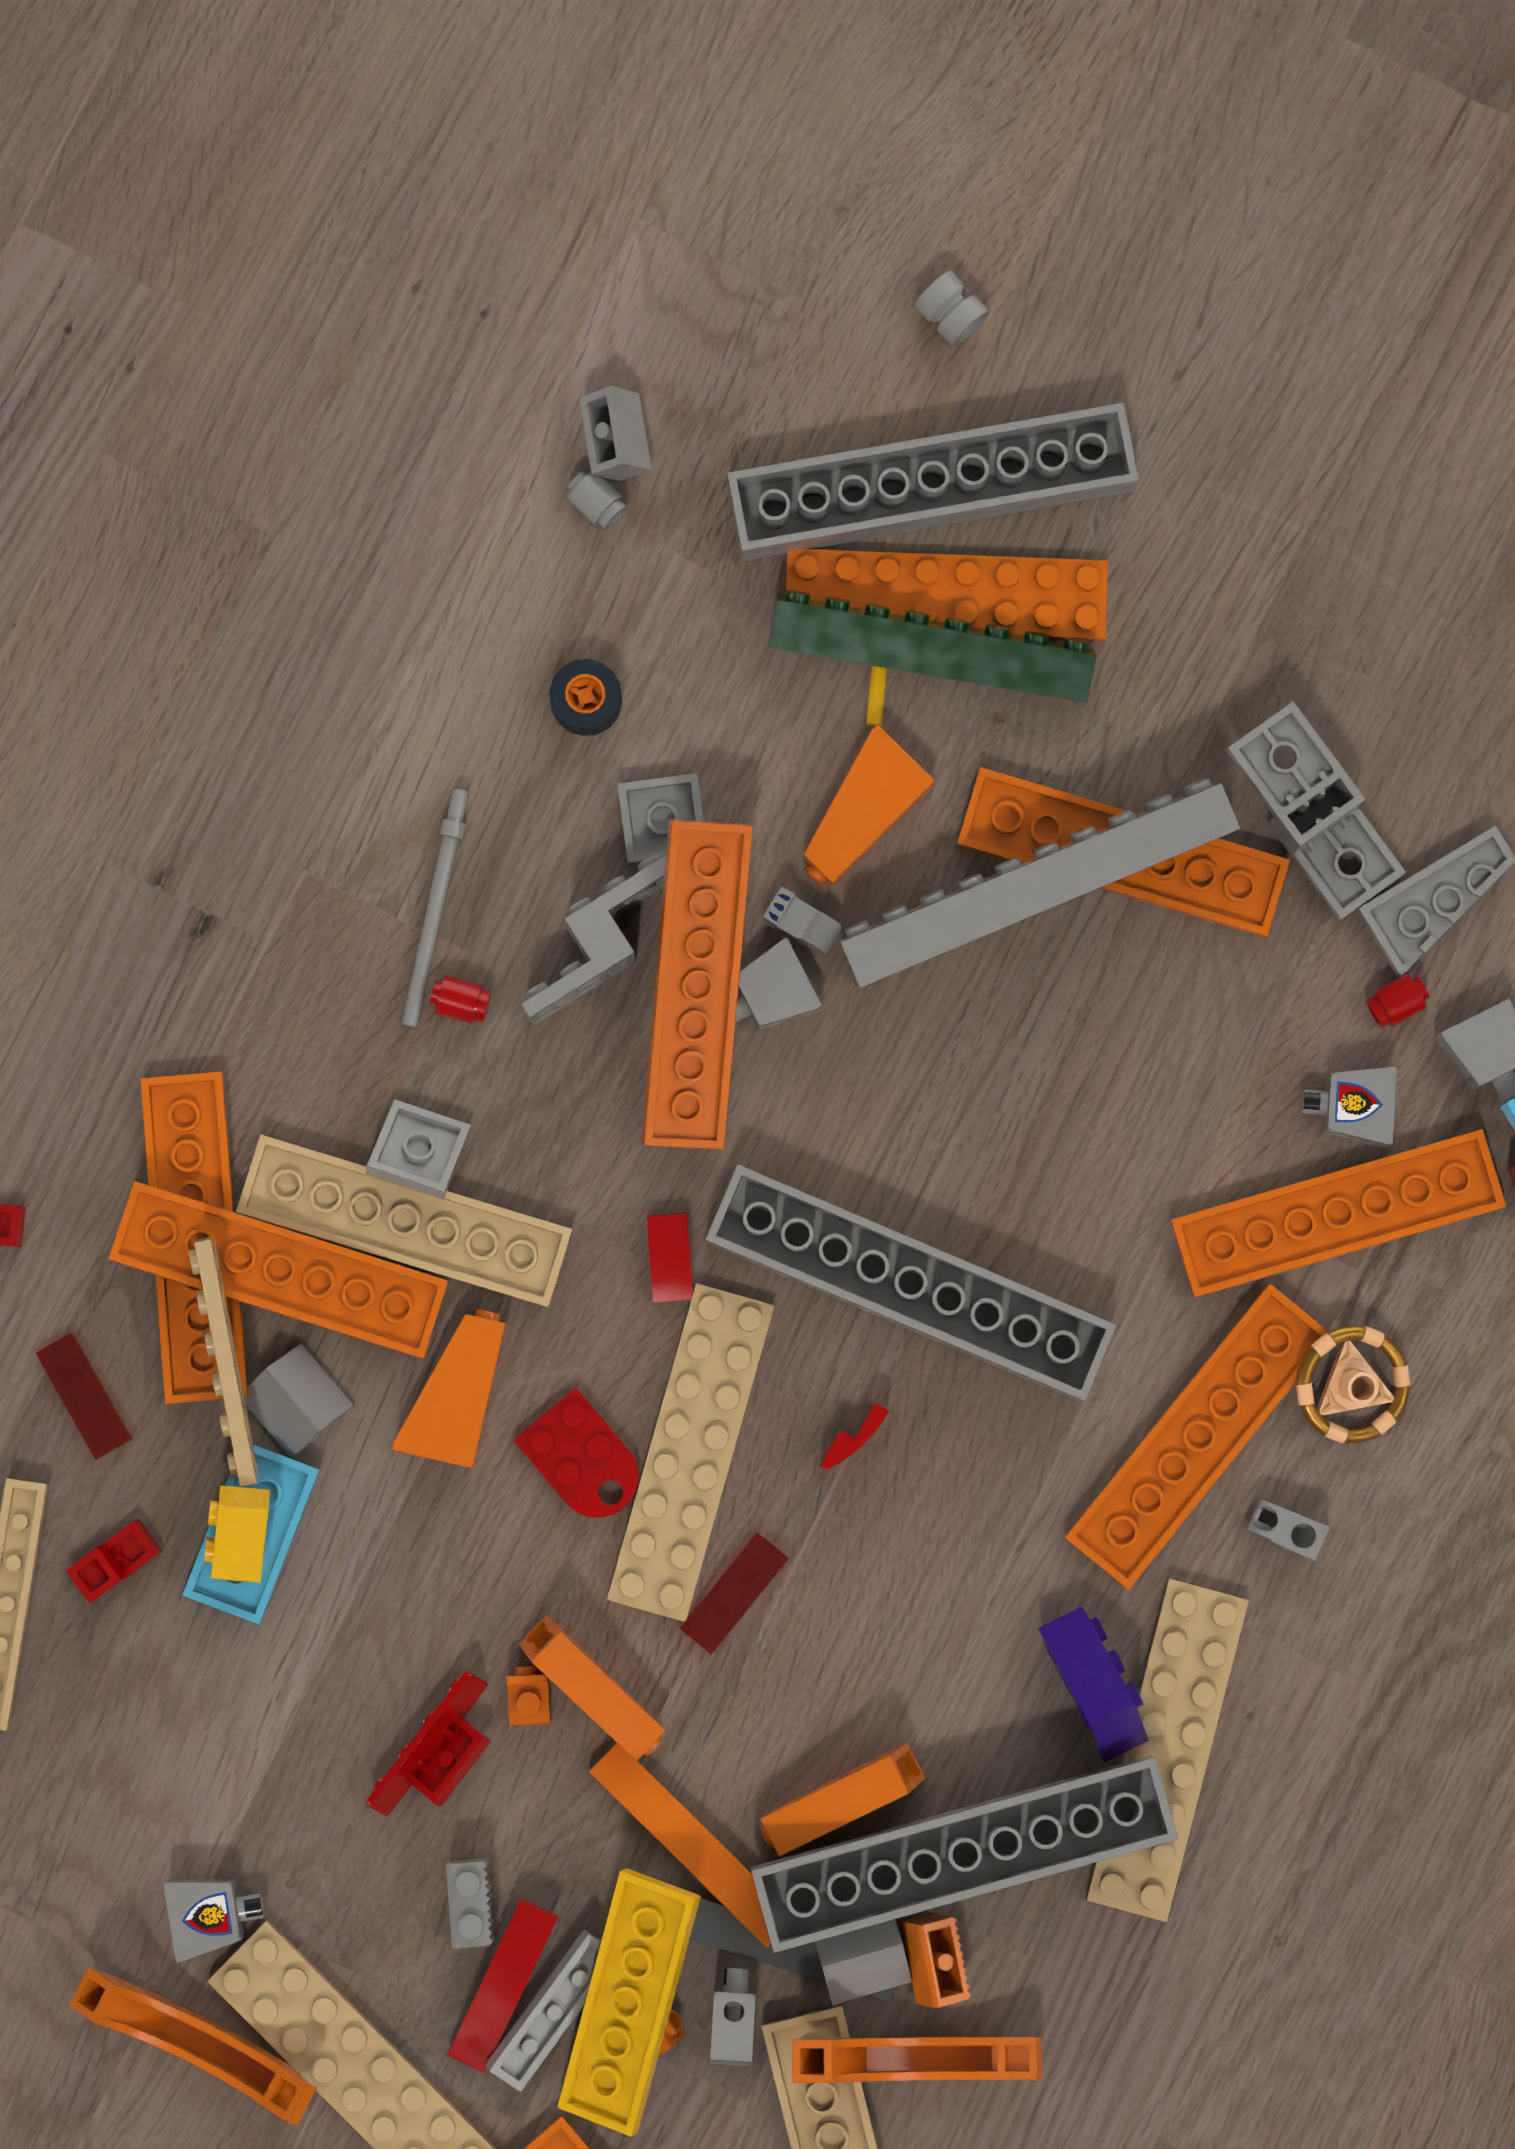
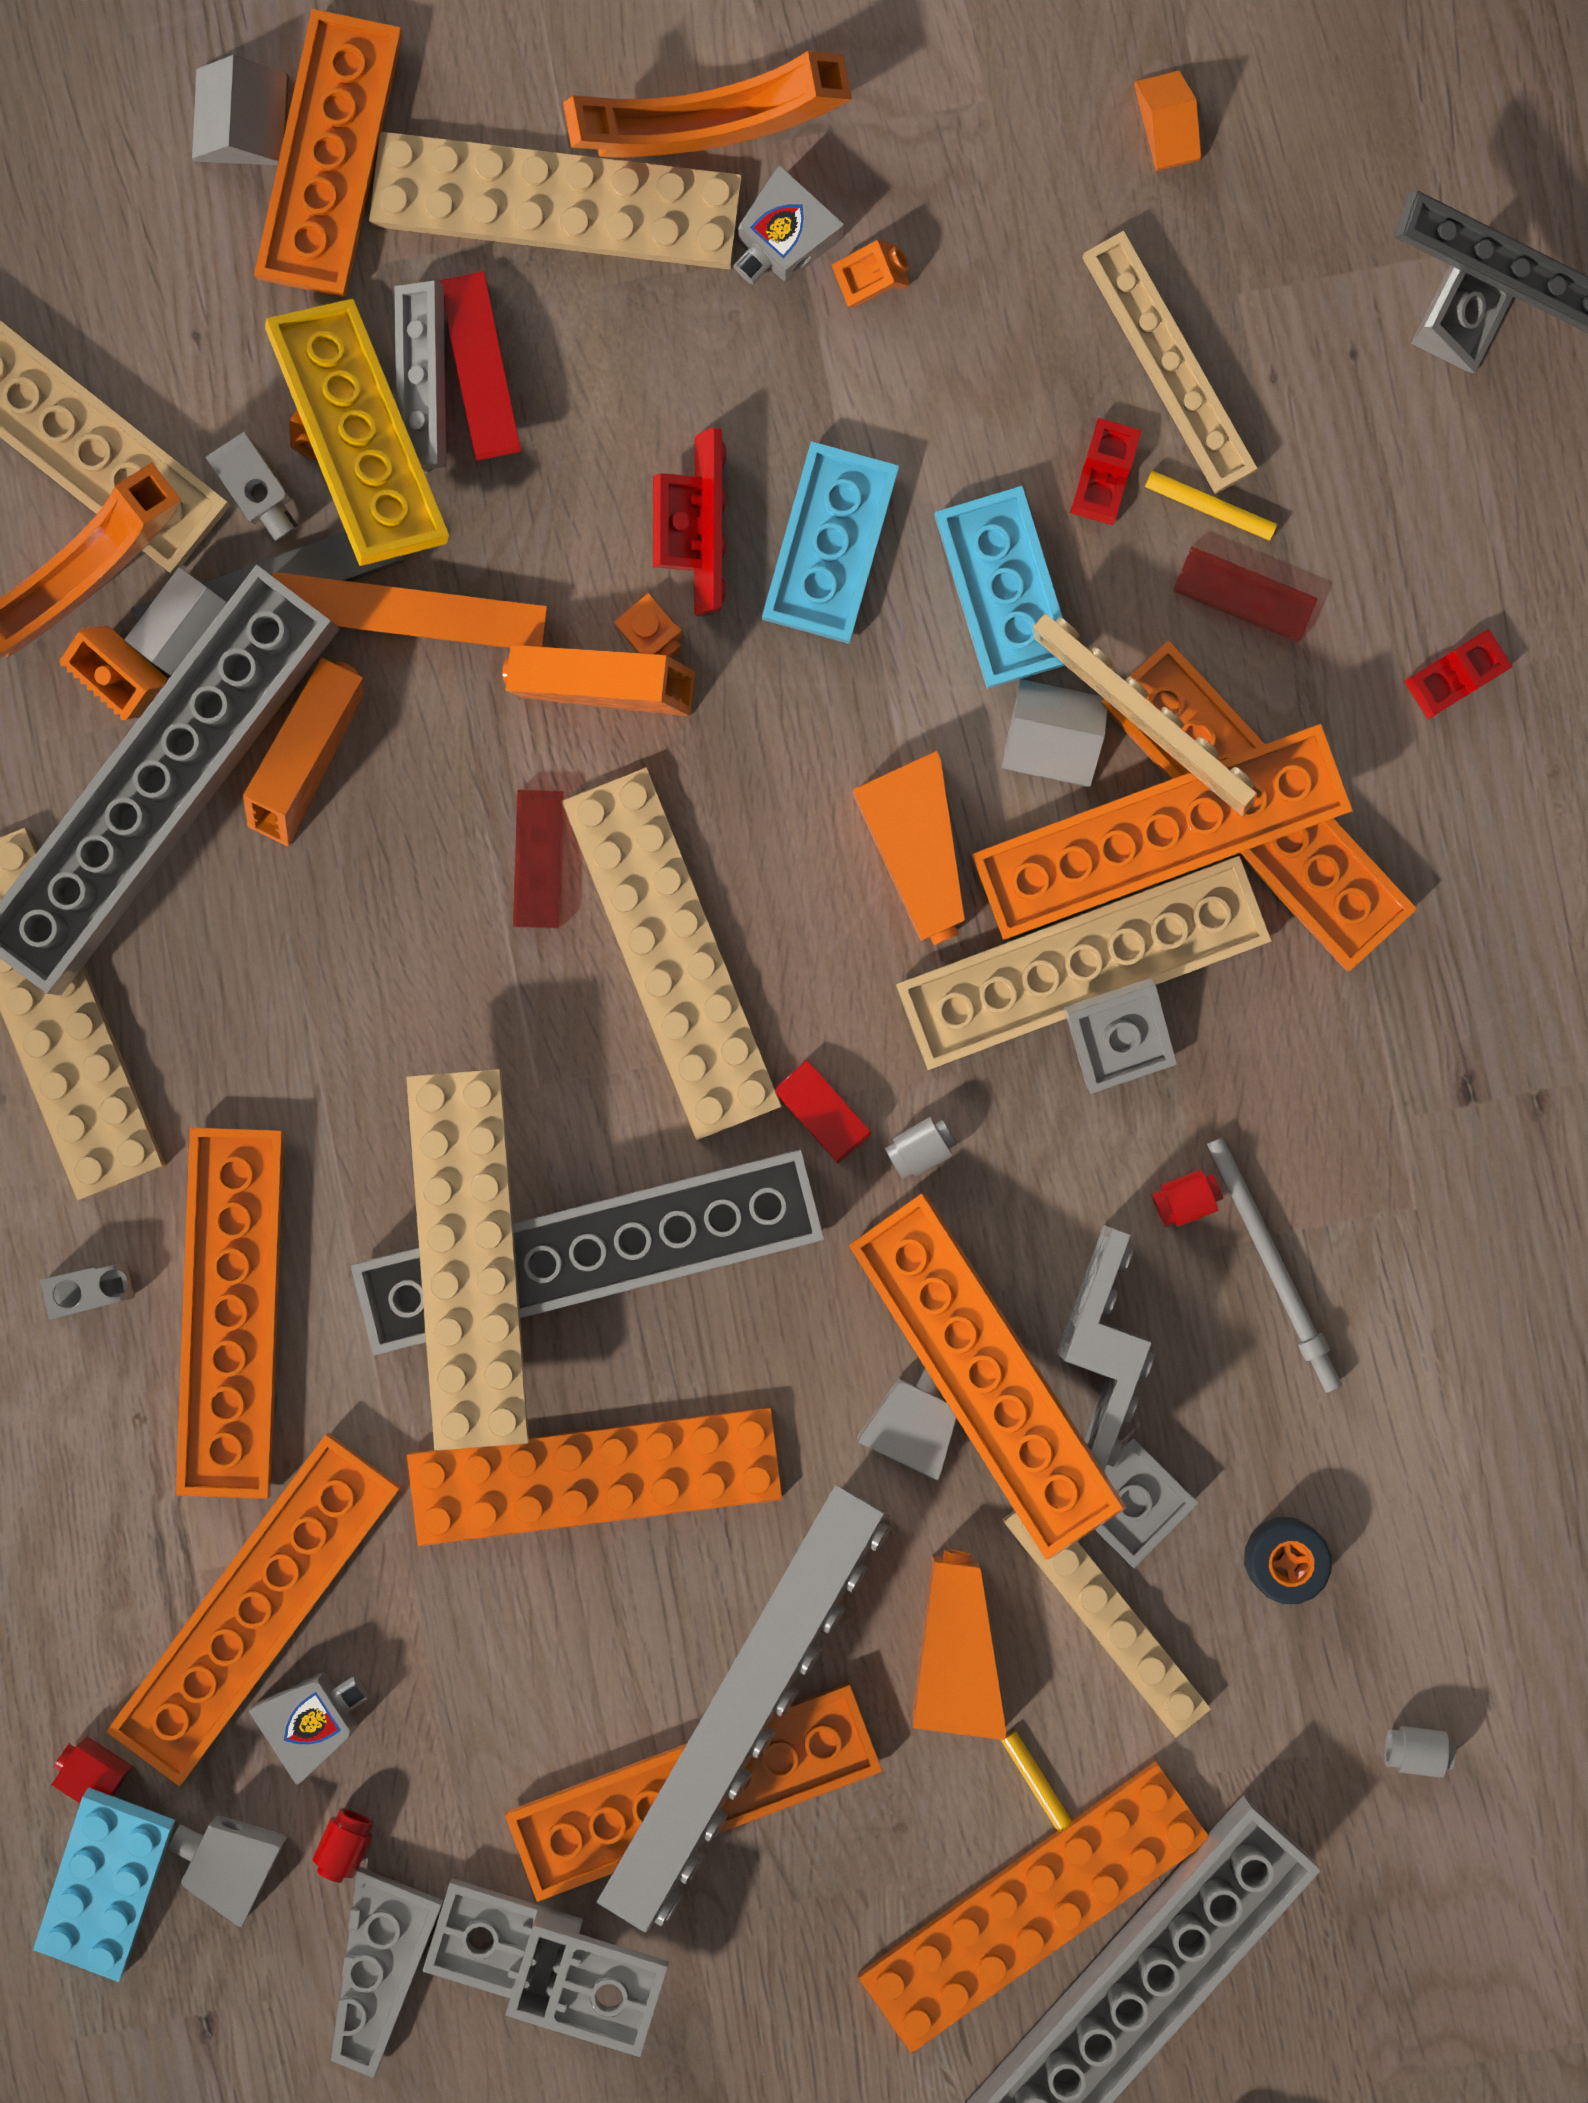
camera: 145 degrees right, 5 degrees up
(58, 1479) = (1210, 505): none -> yellow bar
(168, 1835) = (871, 272): none -> orange bracket
(239, 1533) = (1013, 570): yellow brick -> none
(350, 1661) = (830, 542): none -> medium azure plate
(469, 1903) = (563, 413): light grey brick -> none
(579, 1454) = (769, 875): red plate -> none
(615, 433) = (1450, 1826): light grey brick -> none
(619, 1178) = (921, 1148): none -> light grey brick
(741, 739) = (1118, 1631): none -> tan plate
(802, 922) = (934, 1504): light grey leg -> none
(846, 1445) = (537, 1062): red slope -> none
(932, 647) = (1008, 1850): dark green brick -> none
(998, 1341) = (467, 1259): none -> tan plate
(1027, 1124) = (595, 1476): none -> orange plate
(1095, 1682) = (156, 1023): dark purple wedge -> none
(1352, 1384) = (126, 1464): light nougat piece -> none

